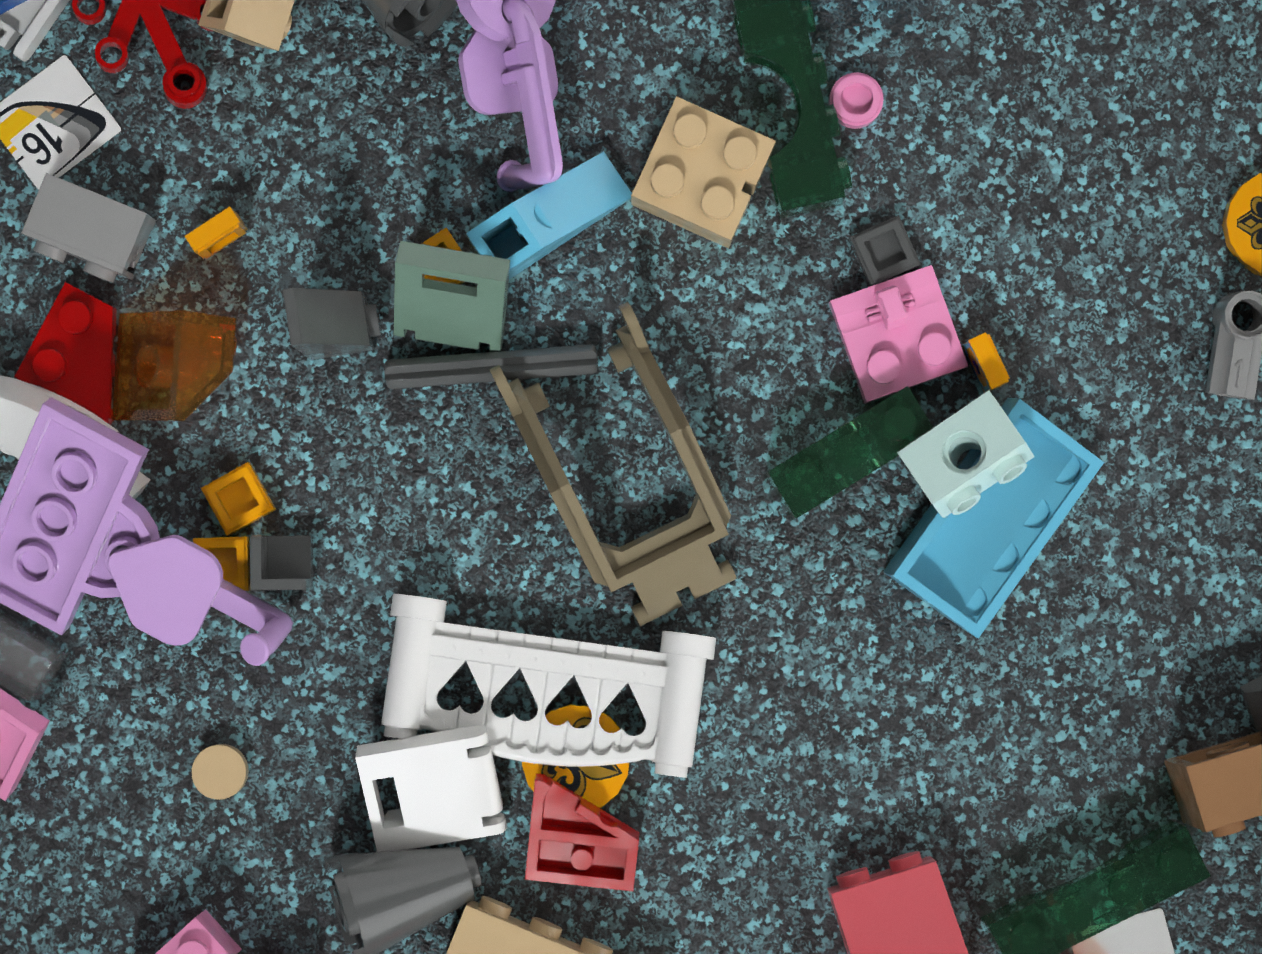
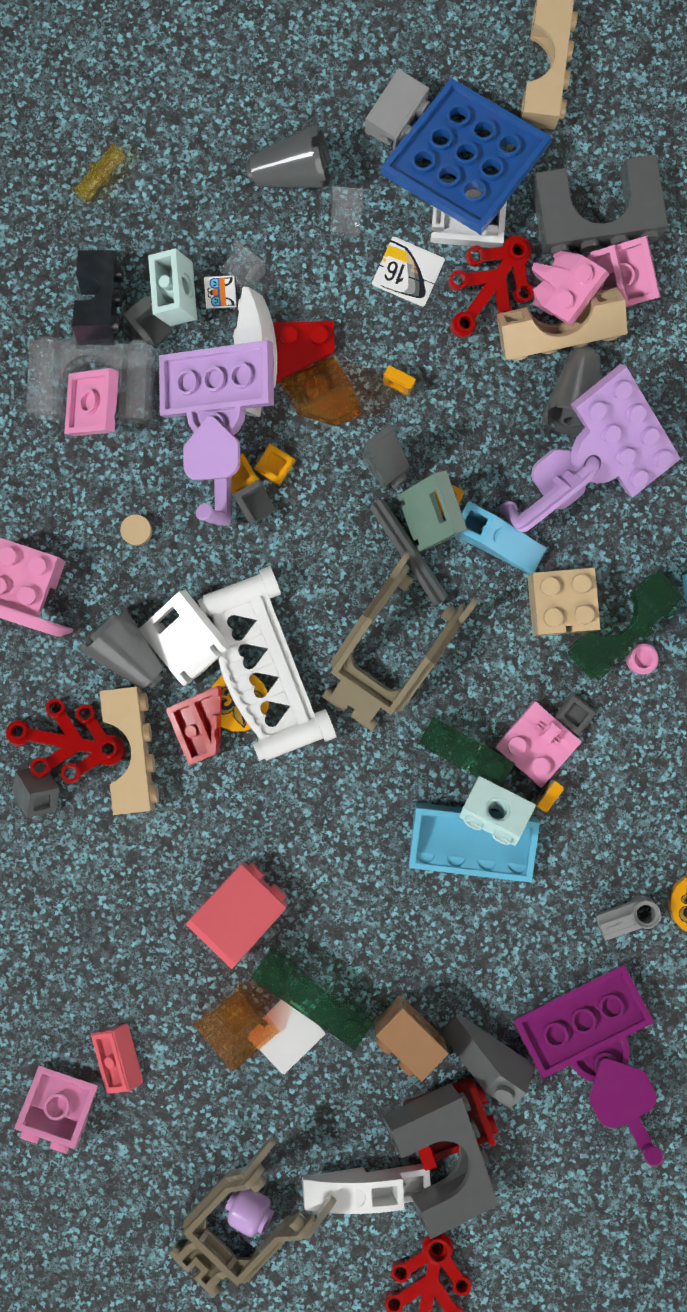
camera: 60 degrees right, 0 degrees up
(88, 227) = (366, 316): light grey hinge -> none

